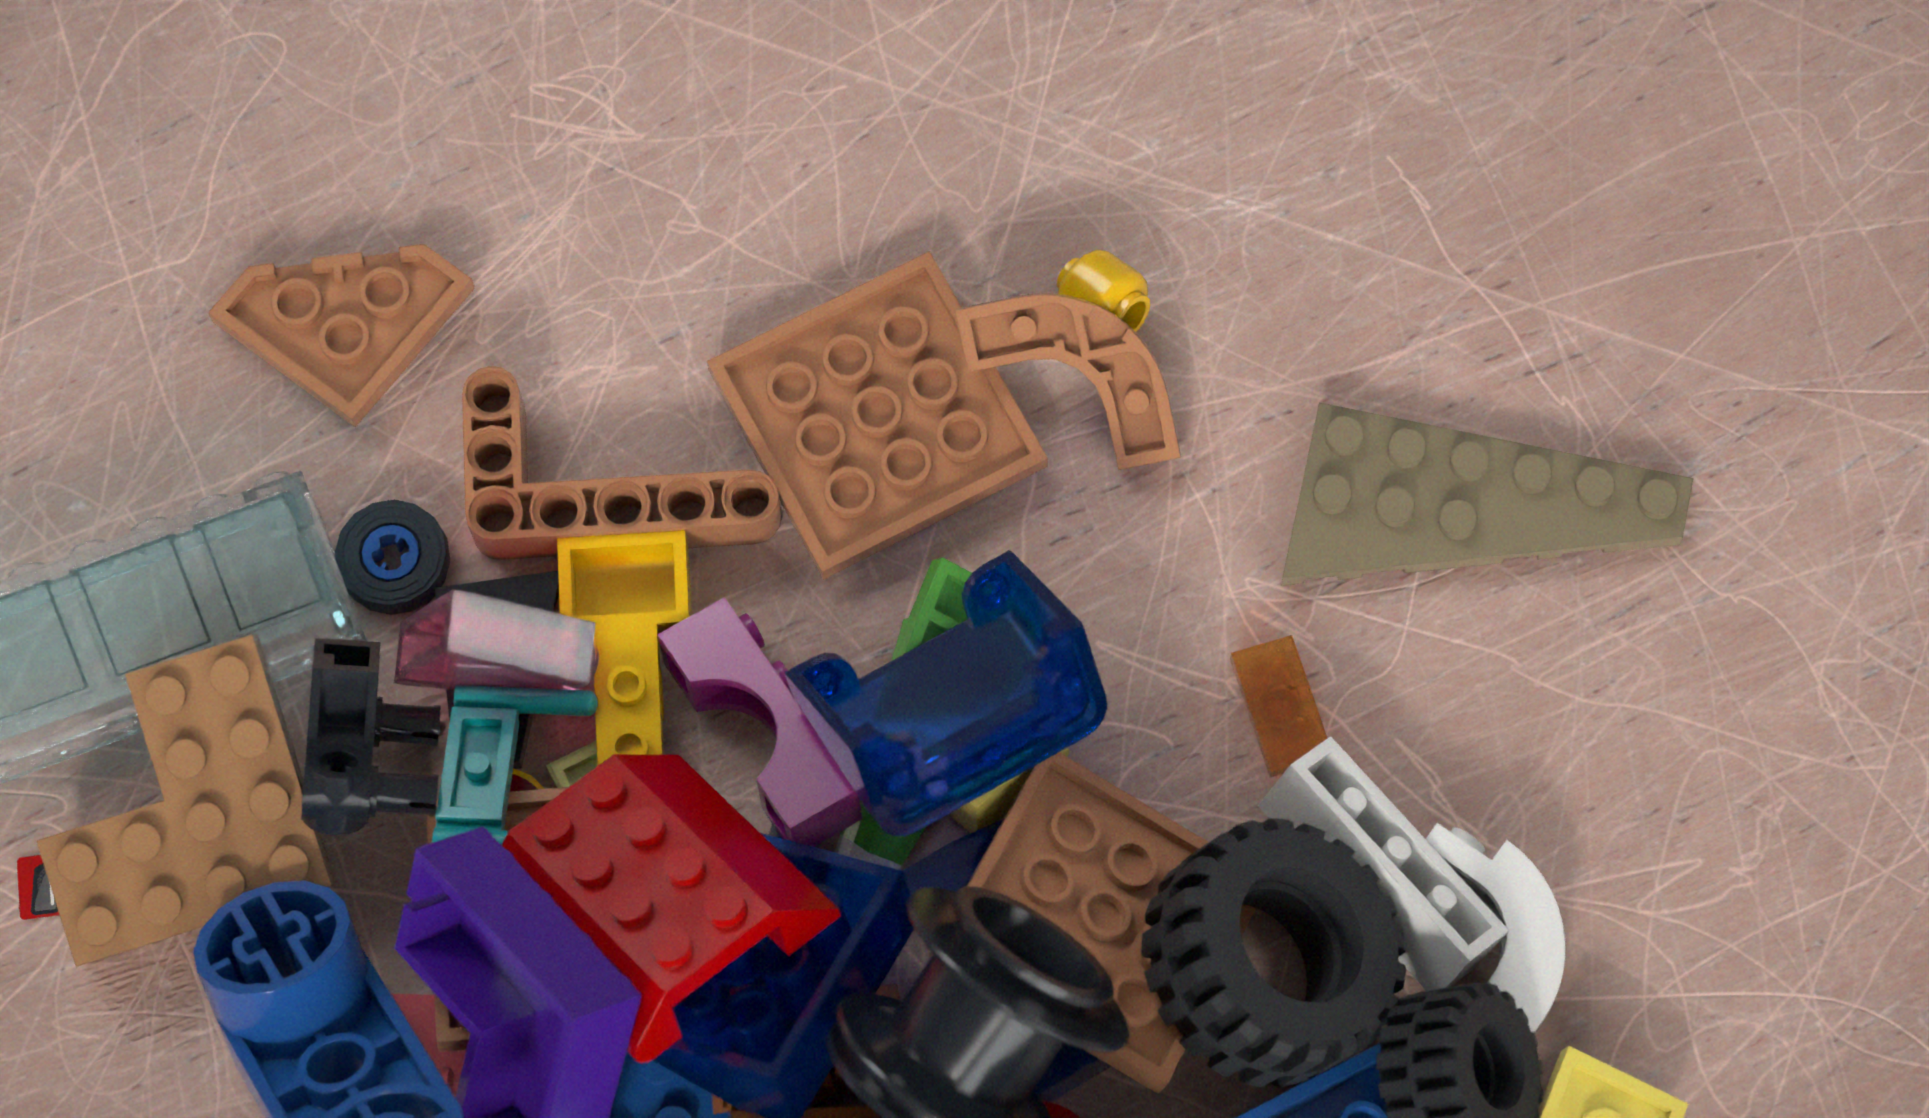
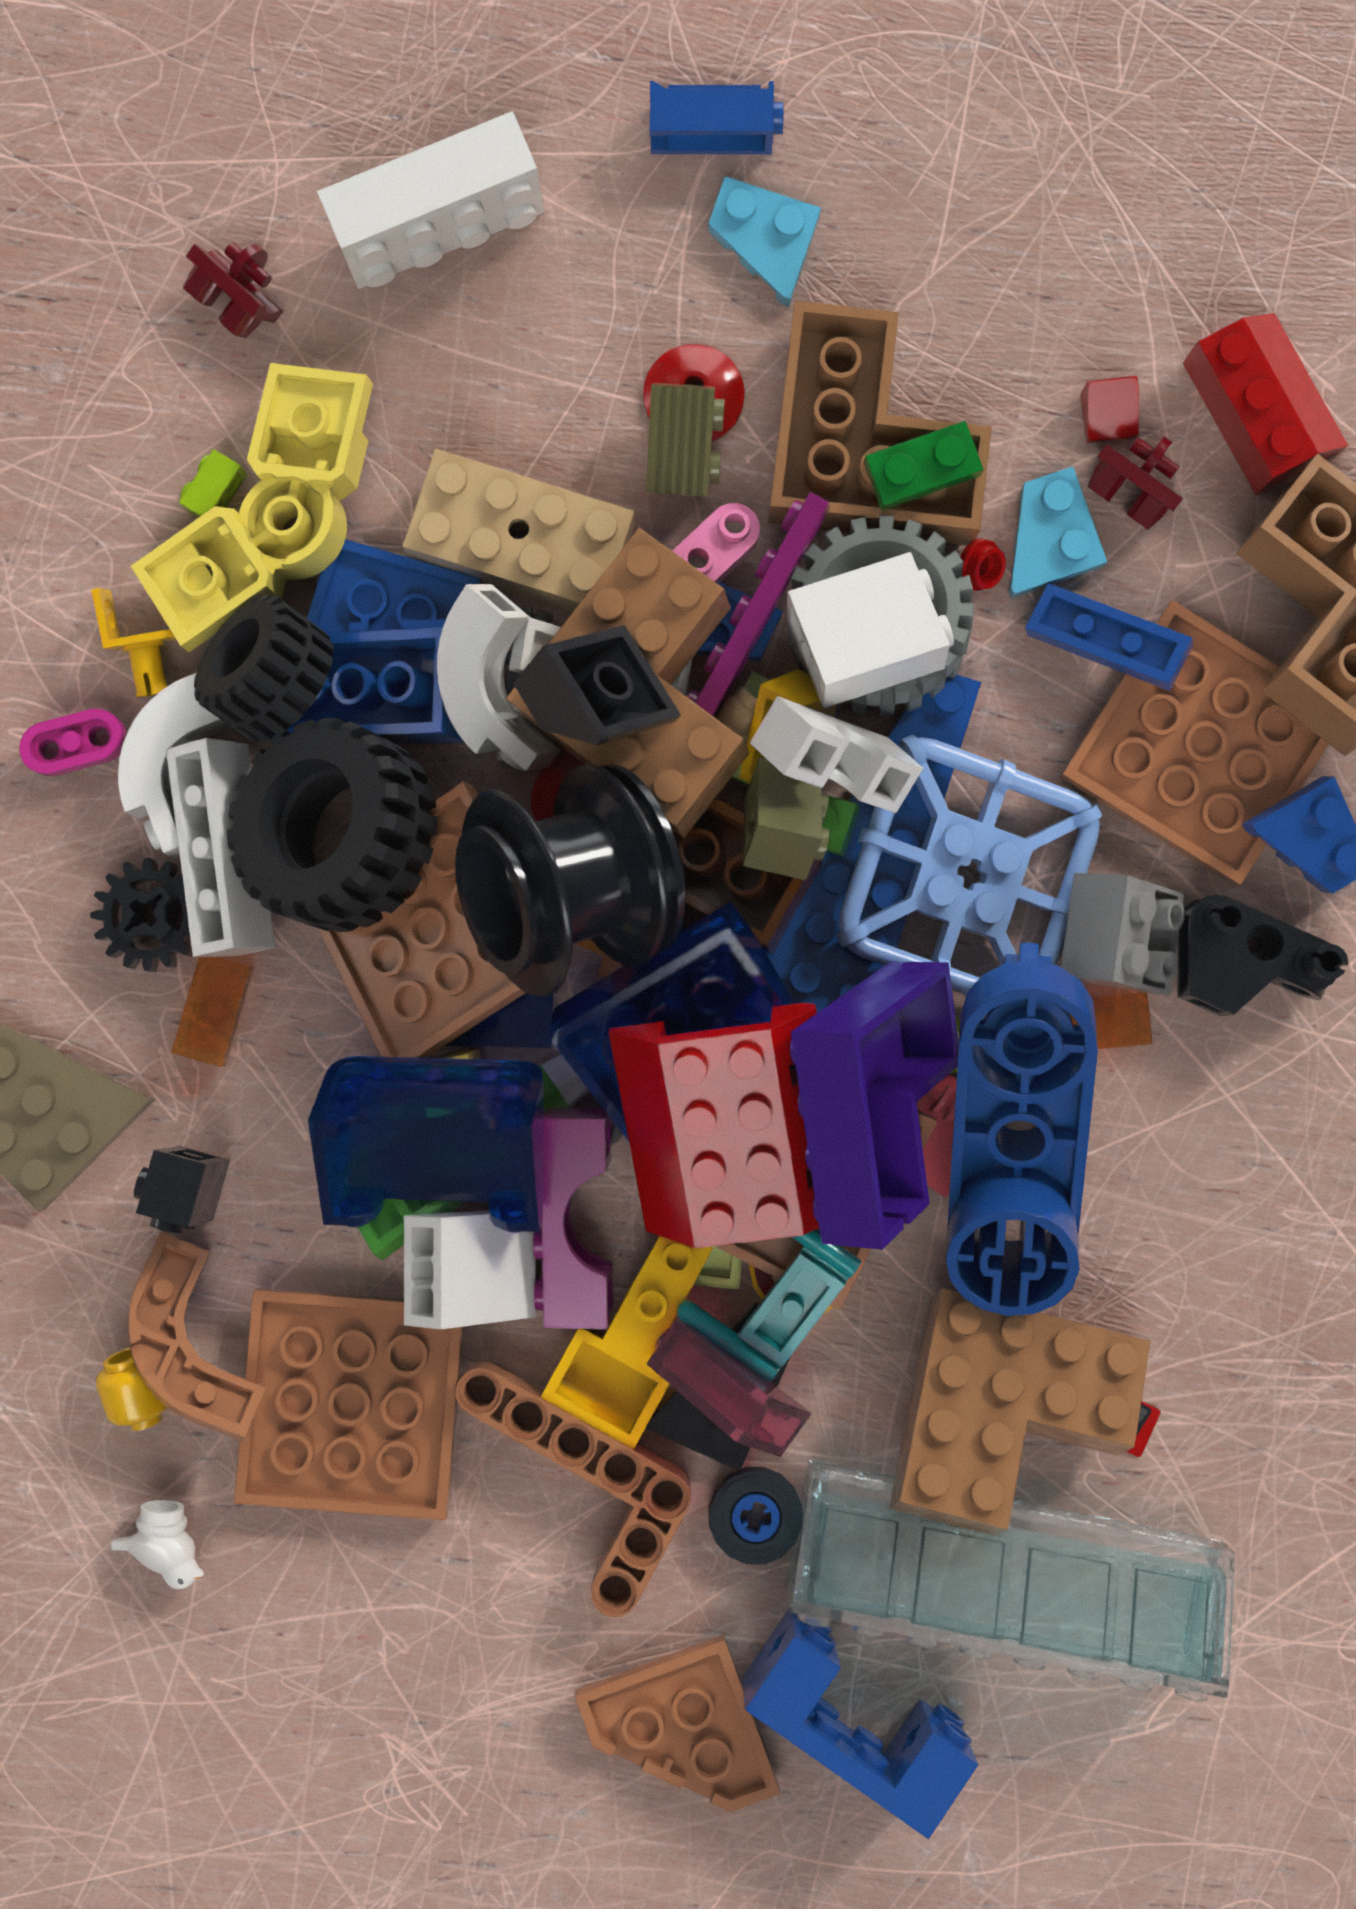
camera: 145 degrees left, 15 degrees up
(88, 391) = (915, 1774): none -> blue plate
(344, 727) = (865, 1402): black piece -> none
(839, 595) = (465, 1271): none -> white brick
(975, 174) = (163, 1543): none -> white animal
(1184, 506) = (180, 1188): none -> black brick
(1436, 761) = (133, 927): none -> black gear
(1617, 887) = (75, 742): none -> dark pink plate
(1623, 1031) = (142, 648): none -> yellow bracket

